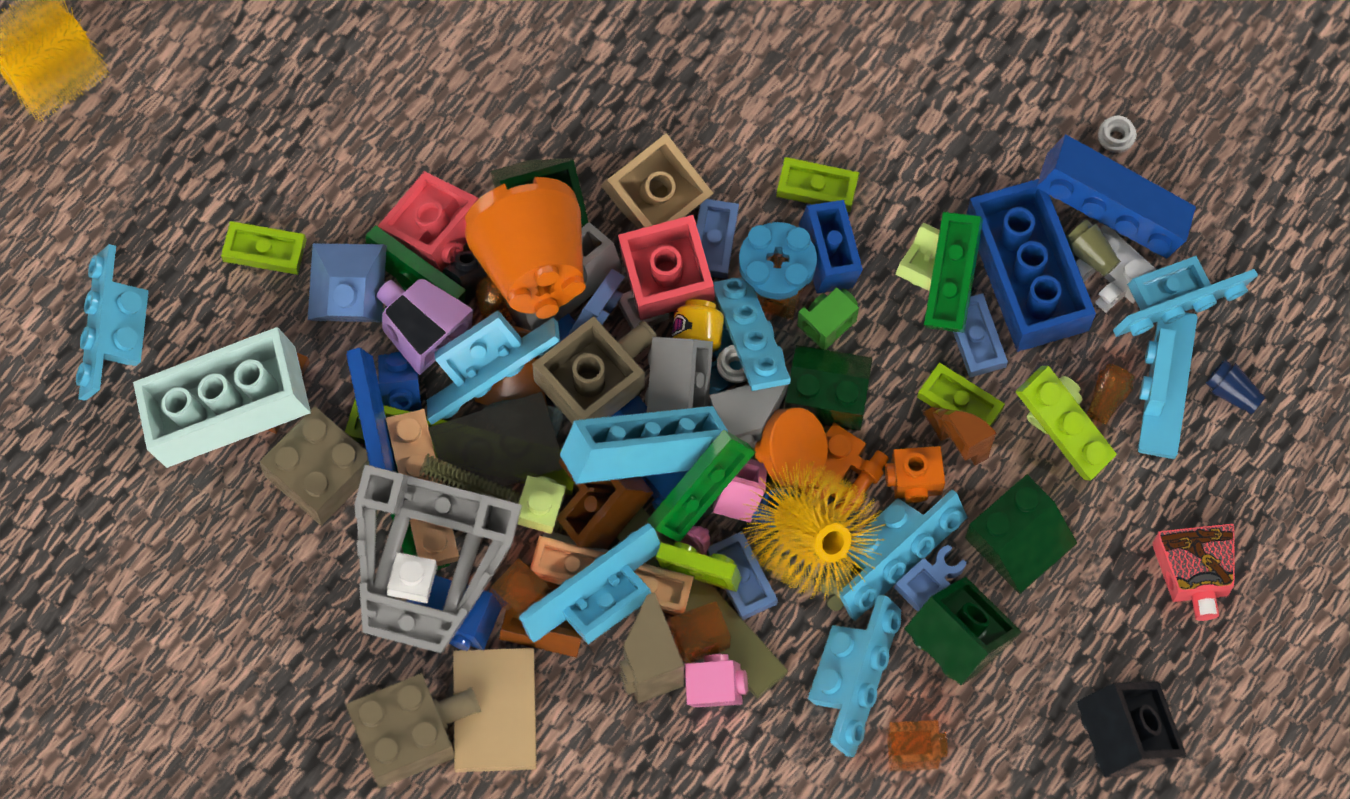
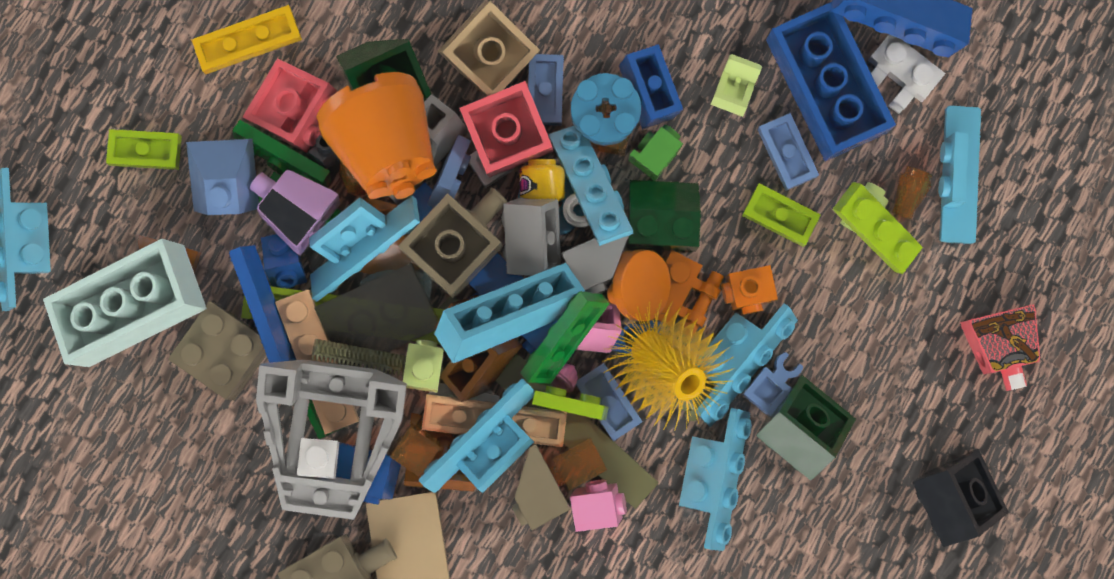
camera: 10 degrees left, 15 degrees up
(394, 148) = (246, 39): none -> yellow plate
(816, 183) = (631, 26): lime plate -> none
(915, 745) = (777, 538): clear orange brick -> none
(953, 272) = (764, 100): green plate -> none
(968, 432) = (792, 252): dark orange slope -> none
(1021, 534) = (848, 333): dark green slope -> none
(1092, 247) = (885, 59): olive cone -> none
(1176, 289) = (959, 90): medium azure bracket -> none
(1235, 387) = (1019, 171): dark blue cone -> none

